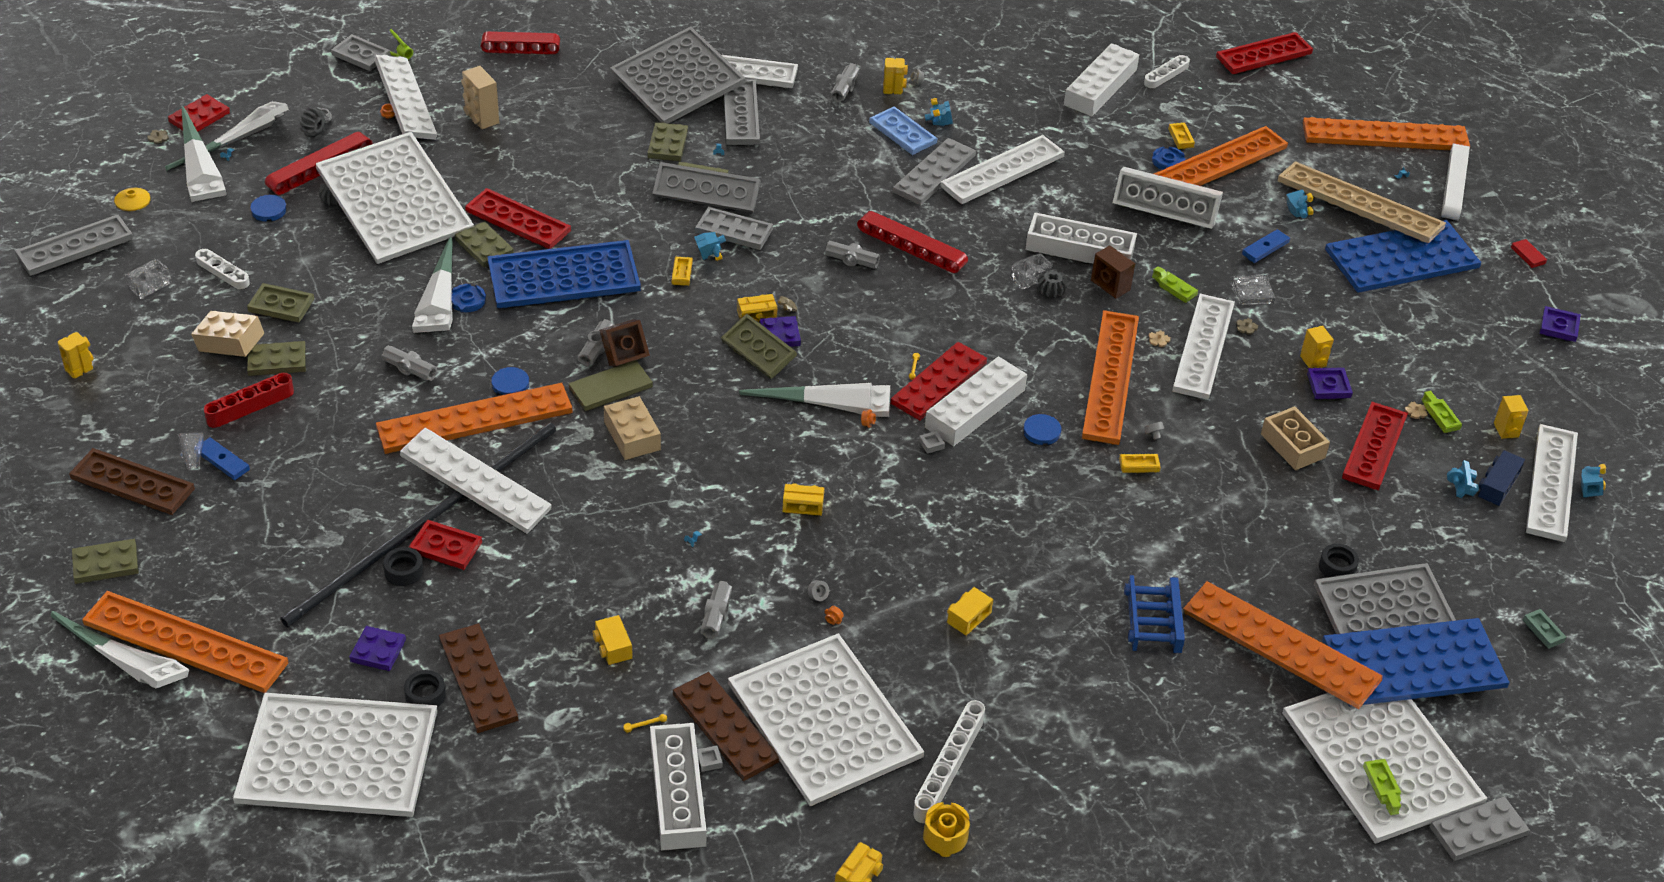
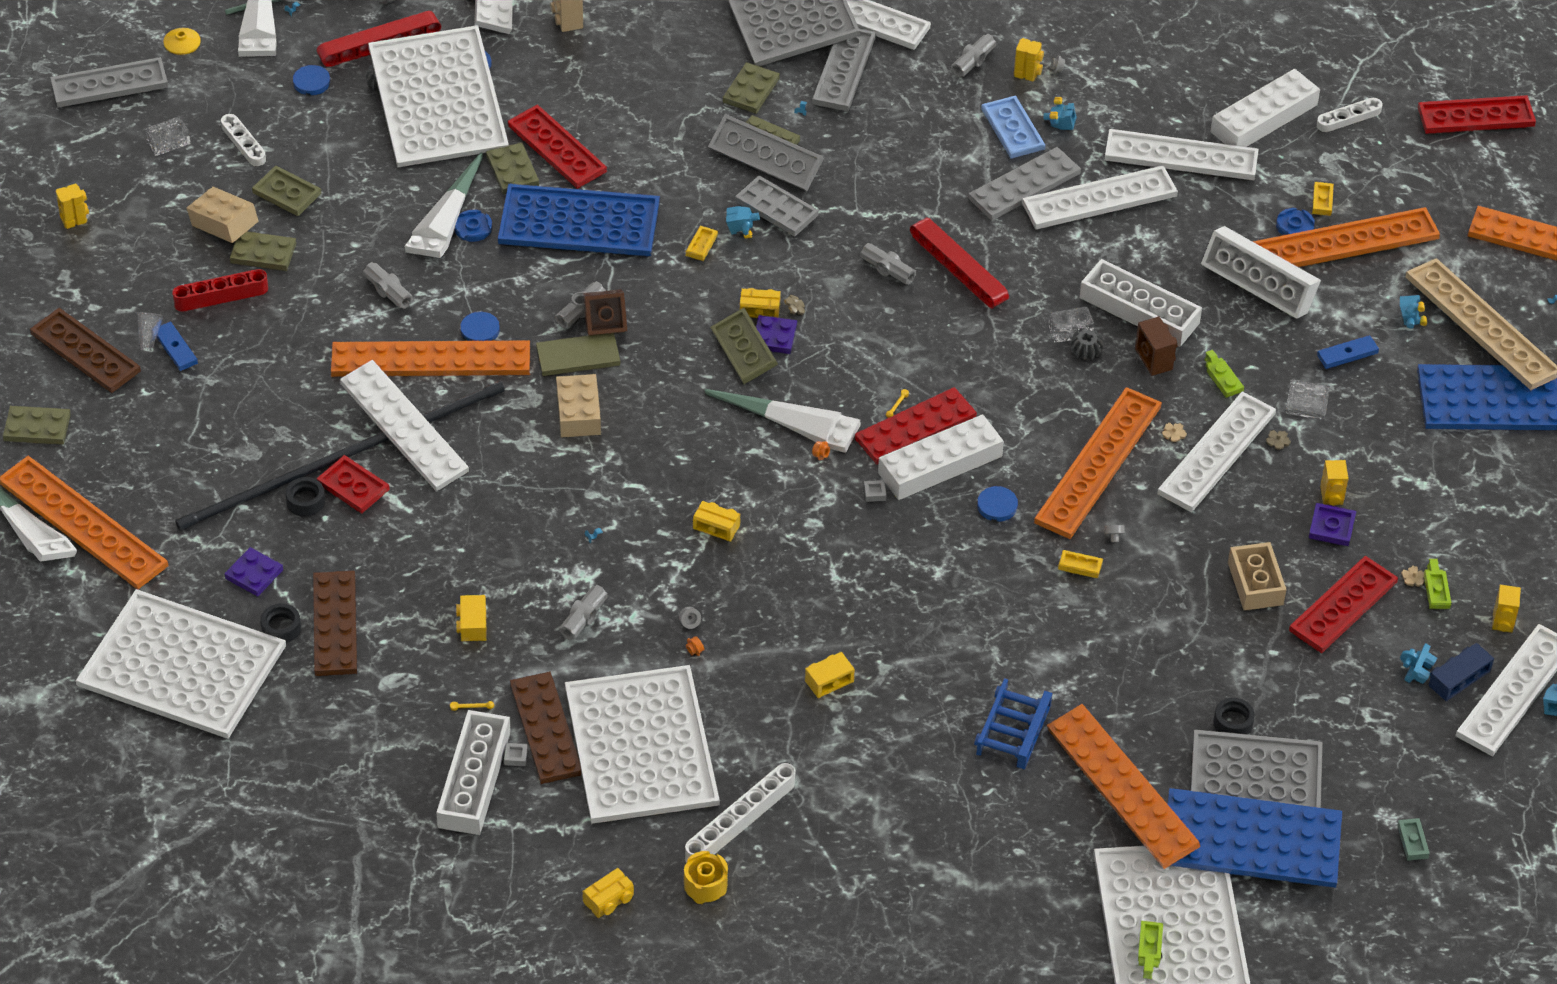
camera: 20 degrees right, 5 degrees up
(1051, 124) = (1181, 154): none -> white plate

